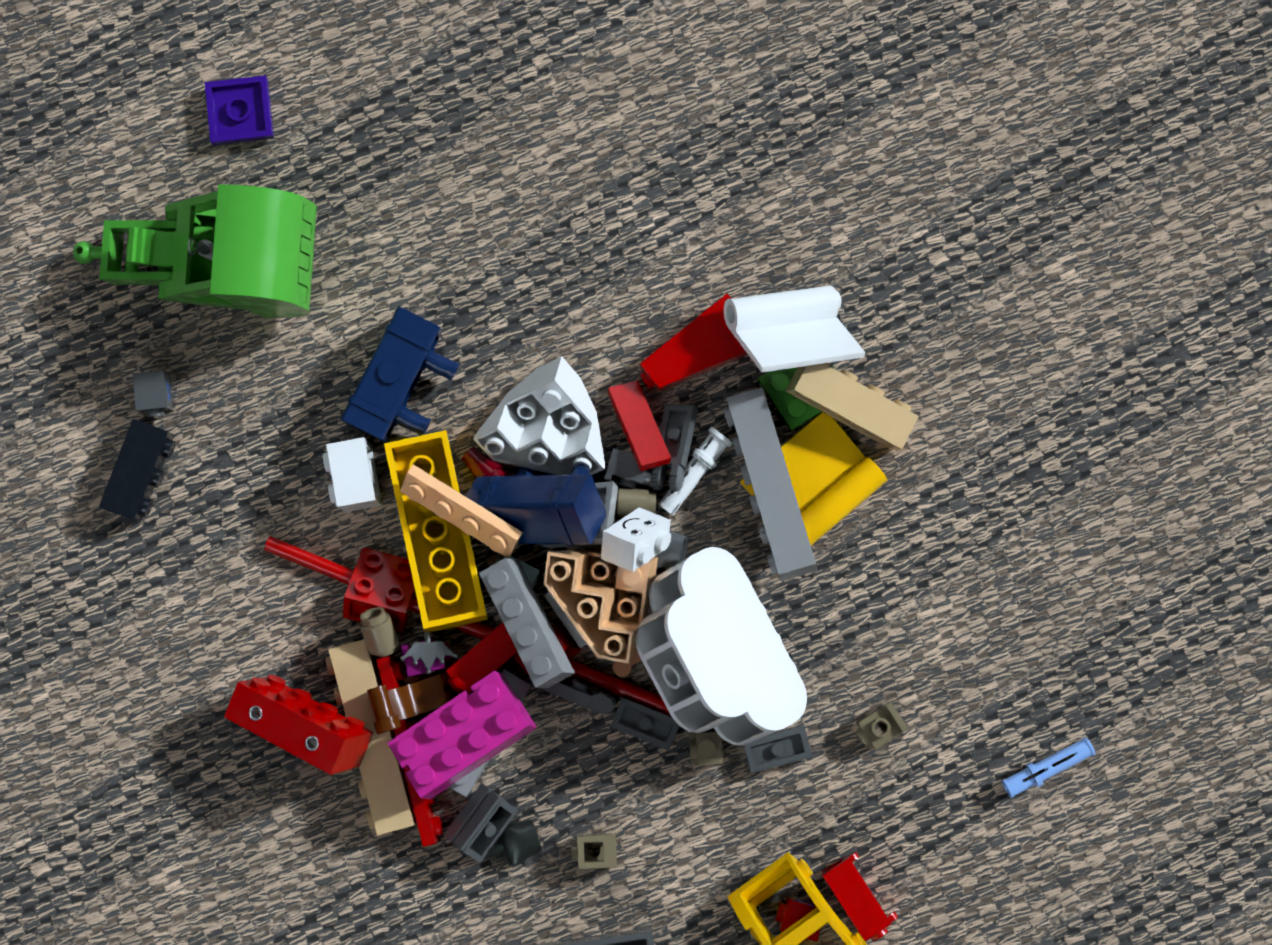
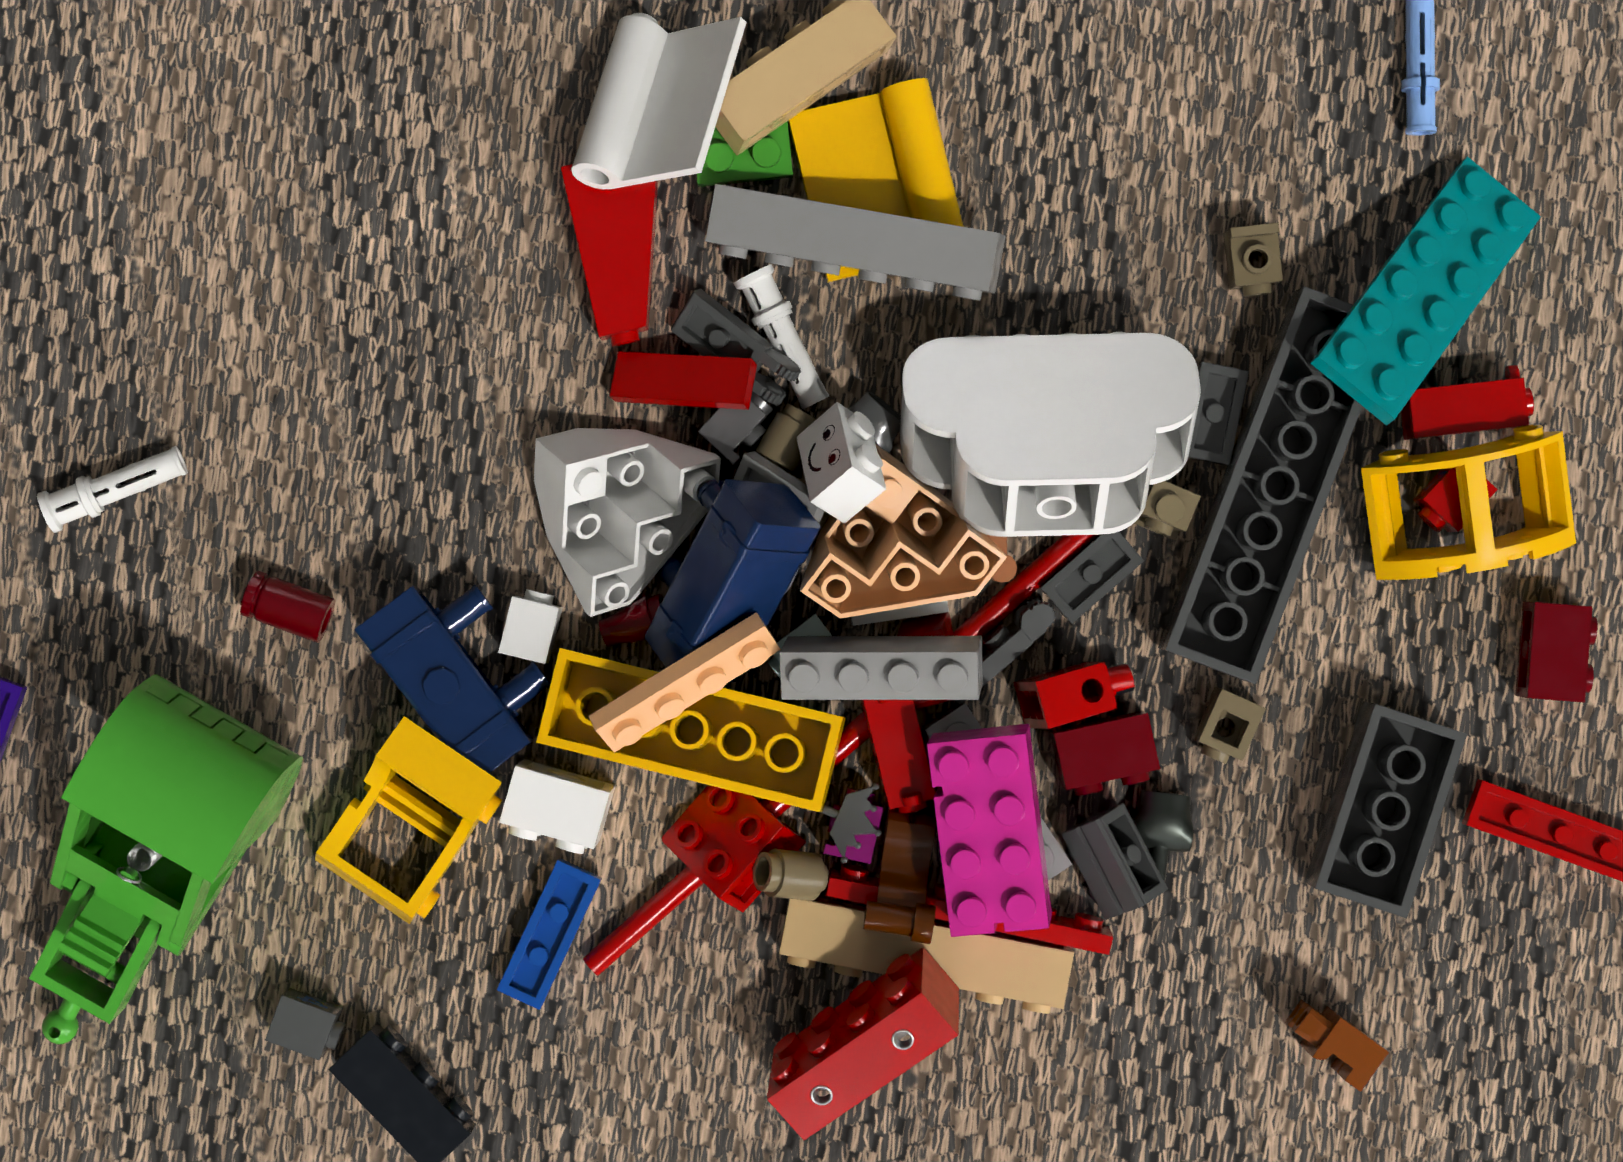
camera: 60 degrees left, 5 degrees up
(275, 509) = (549, 933): none -> blue plate
(337, 397) = (438, 773): none -> yellow window
(393, 263) = (287, 606): none -> dark red piece
(399, 122) = (91, 502): none -> white pin
(450, 409) = (531, 627): none -> white brick
(543, 784) = (1105, 752): none -> dark red brick
(559, 738) = (1058, 698): none -> red torso
(752, 806) = (1266, 500): none -> dark grey brick
(912, 837) = (1426, 291): none -> teal plate

